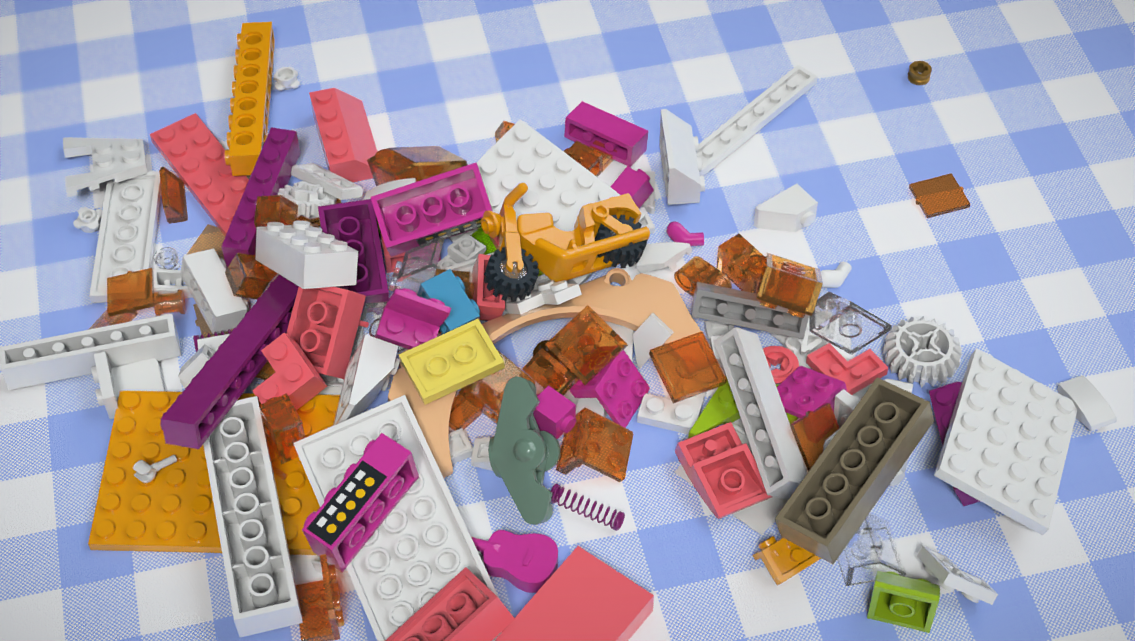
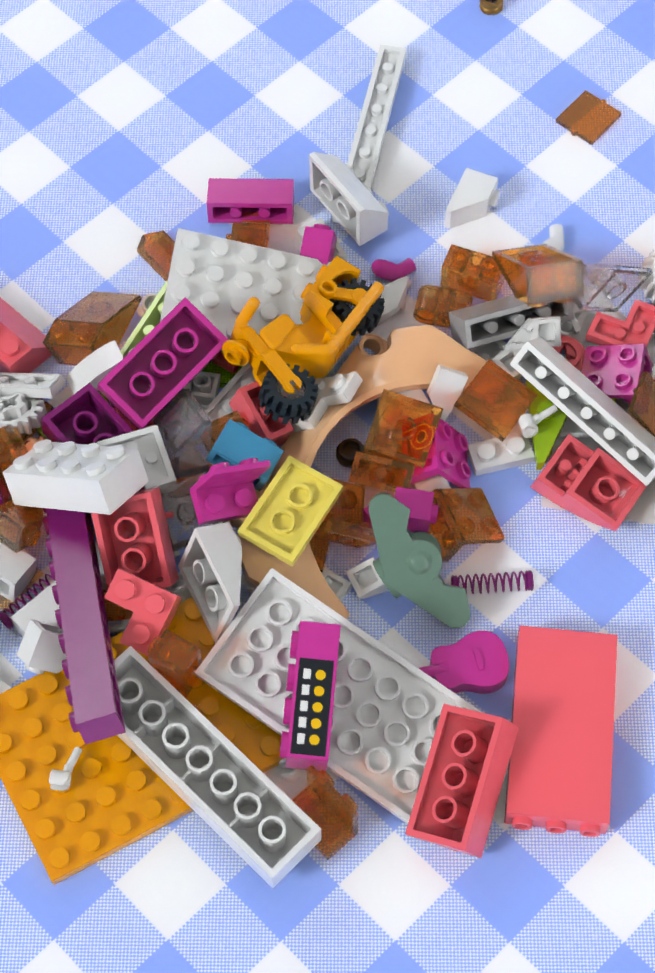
camera: 30 degrees left, 10 degrees up
(377, 270) = (152, 454): none -> white plate
(703, 397) = (529, 423): none -> white hand
(769, 332) = (545, 327): none -> white tile

